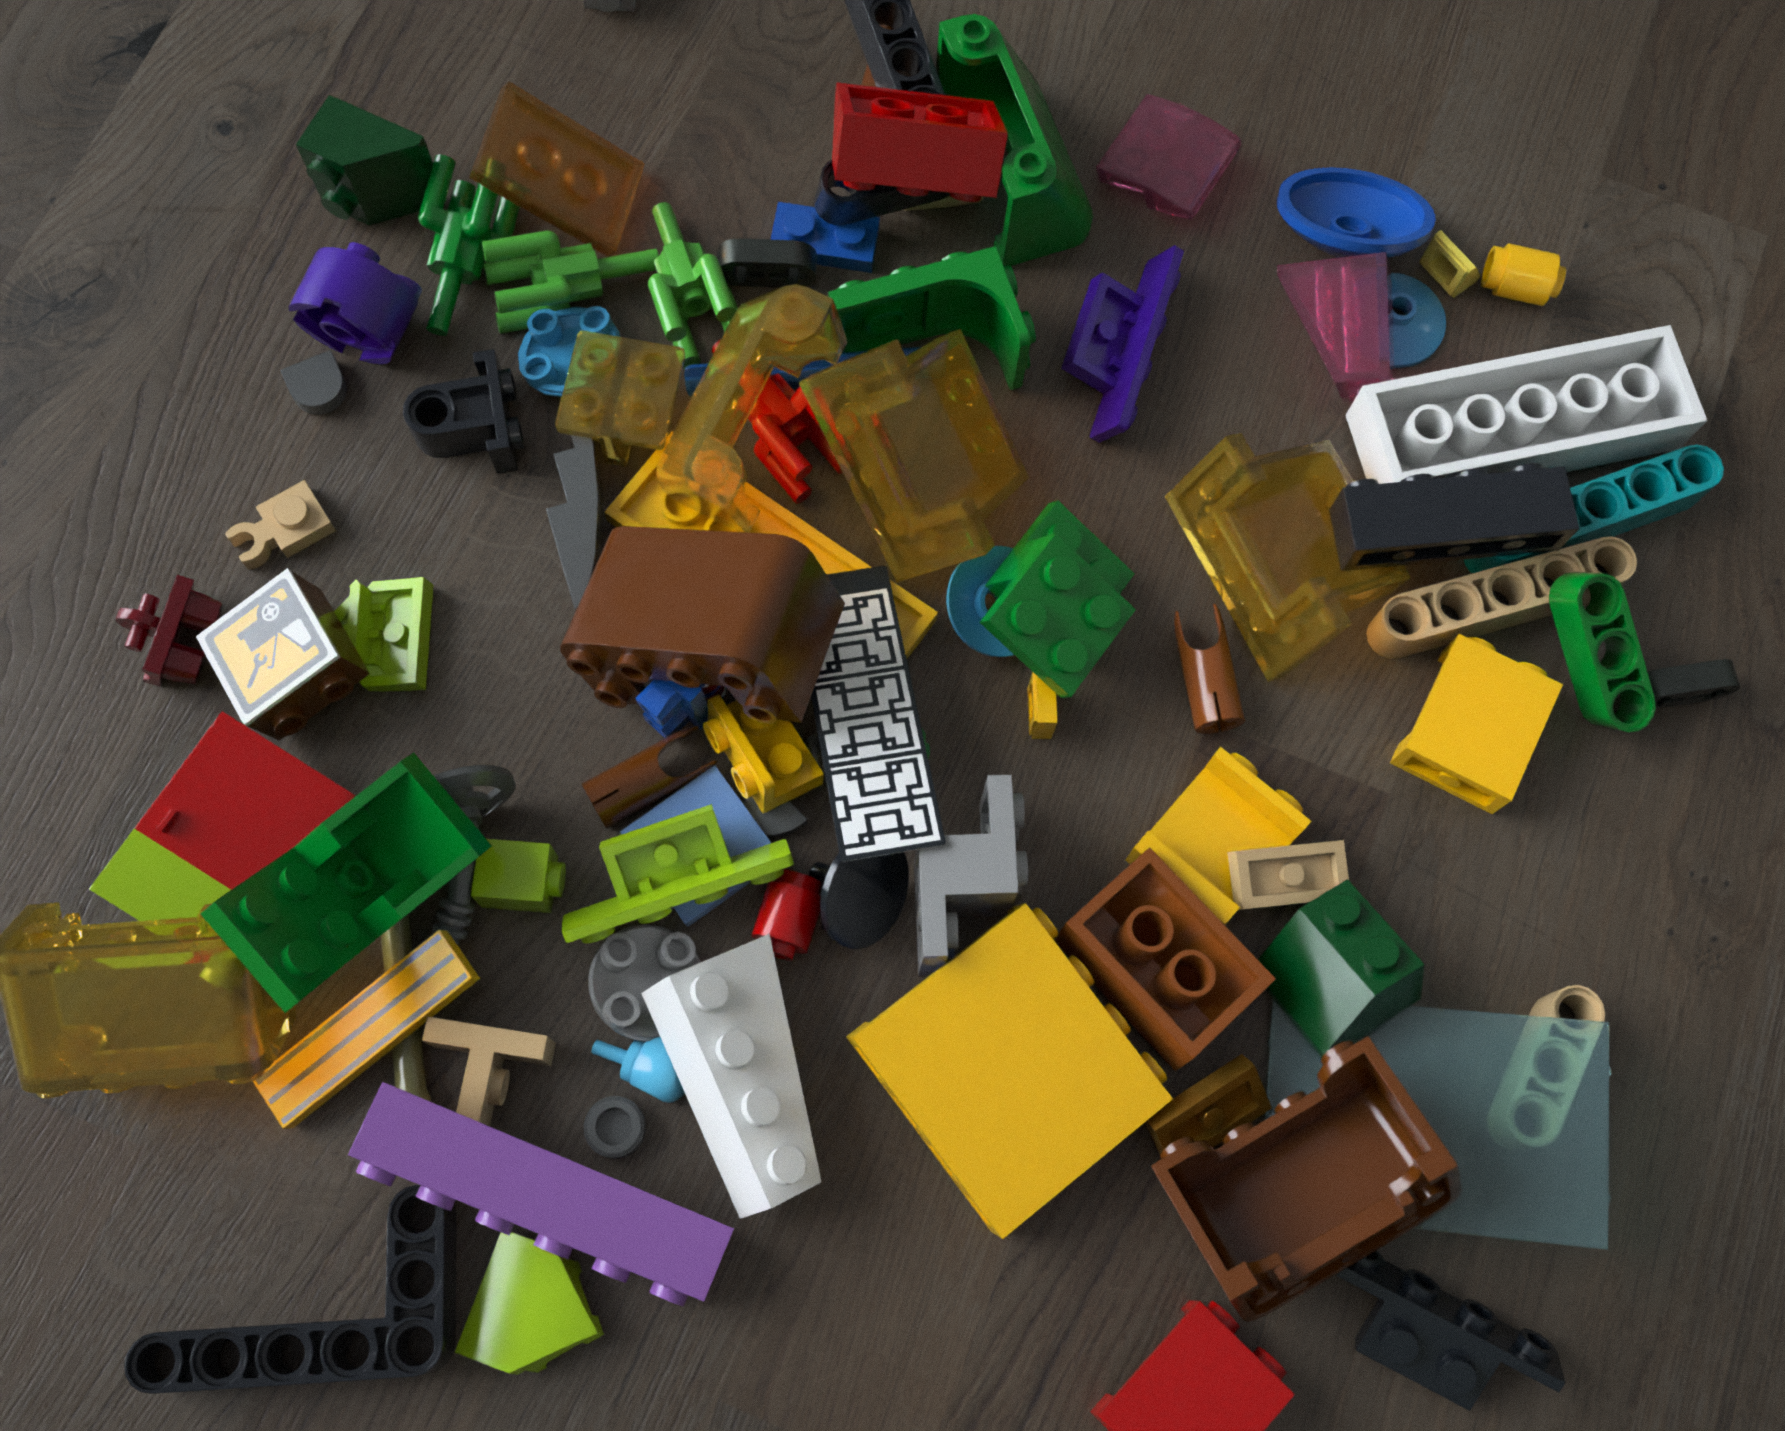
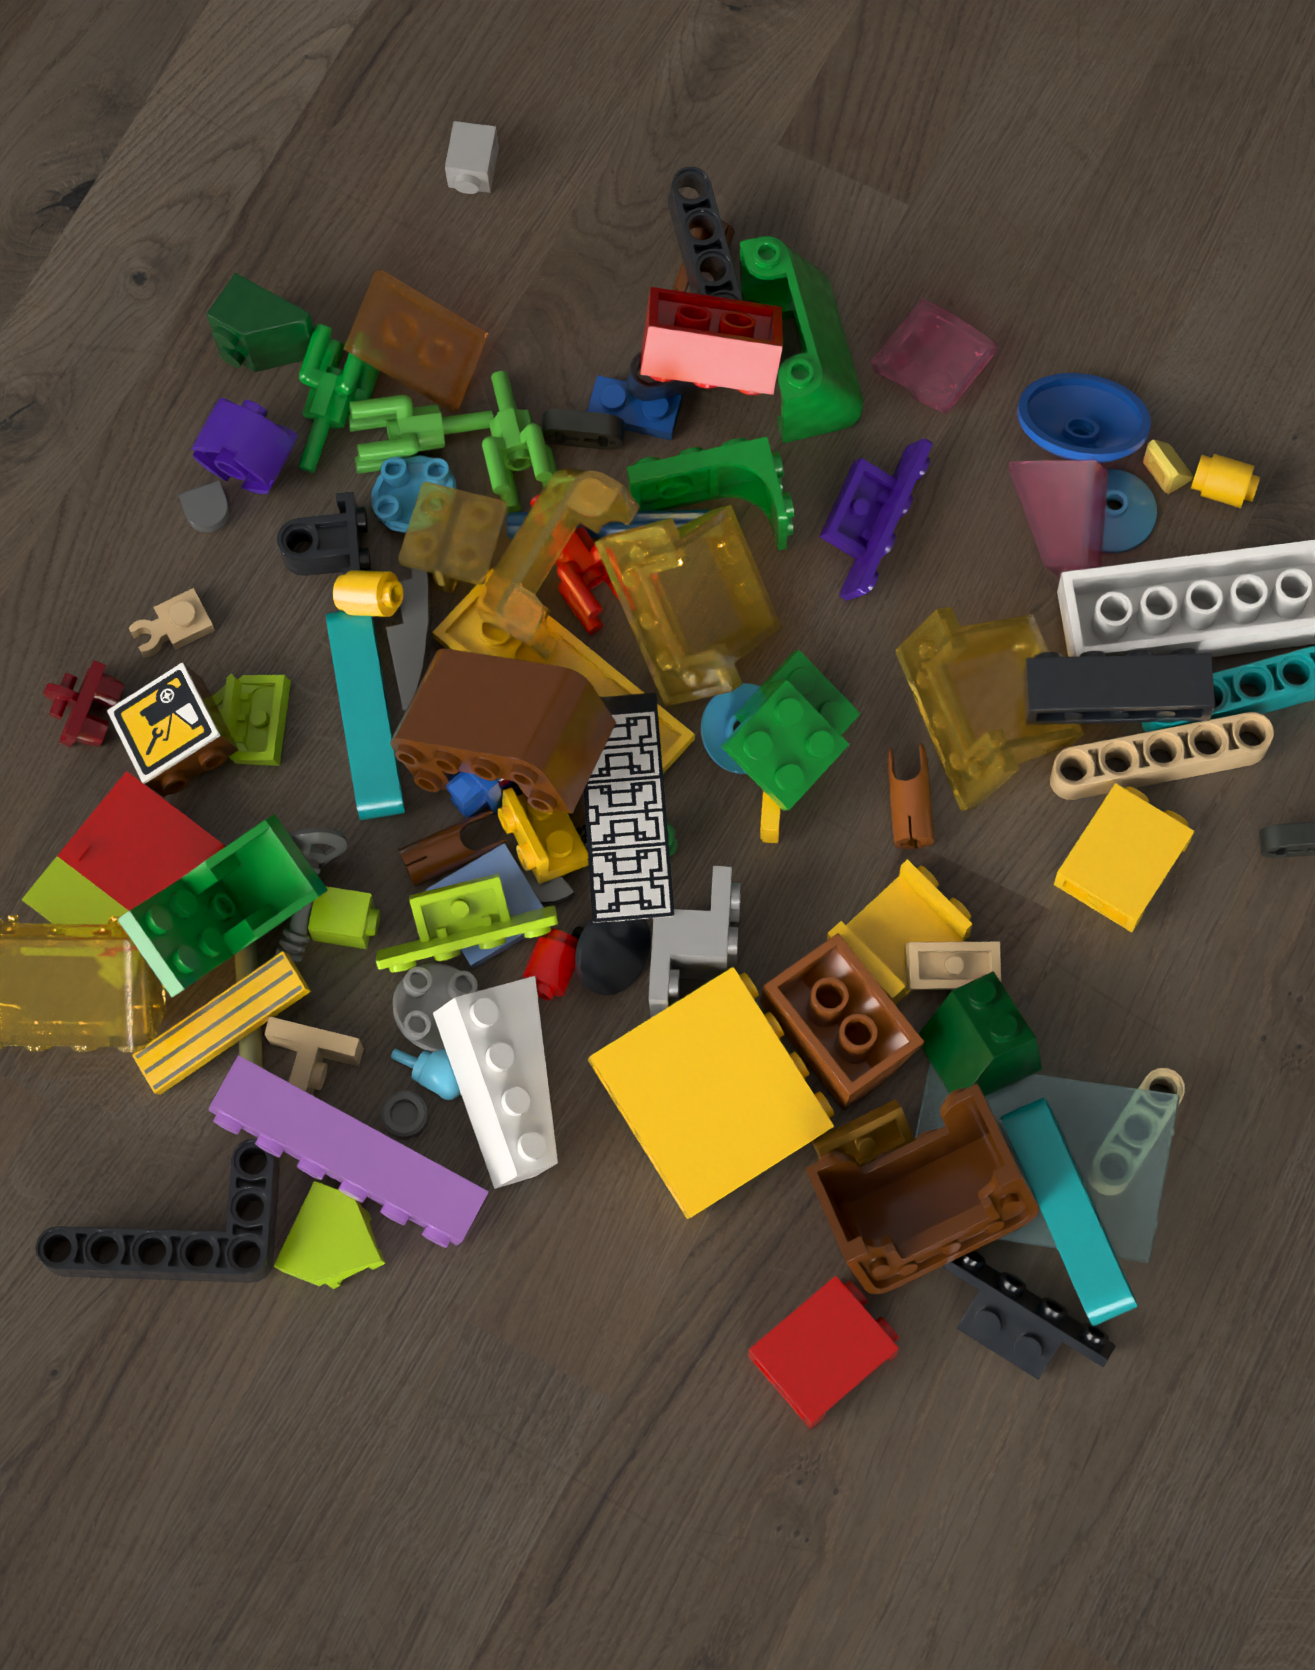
camera: 15 degrees right, 0 degrees up
(520, 468) = (368, 593): none -> yellow brick
(527, 618) = (365, 715): none -> teal beam
(1504, 1199) = (1069, 1211): none -> teal beam
(1623, 665) = (1246, 821): green beam -> none

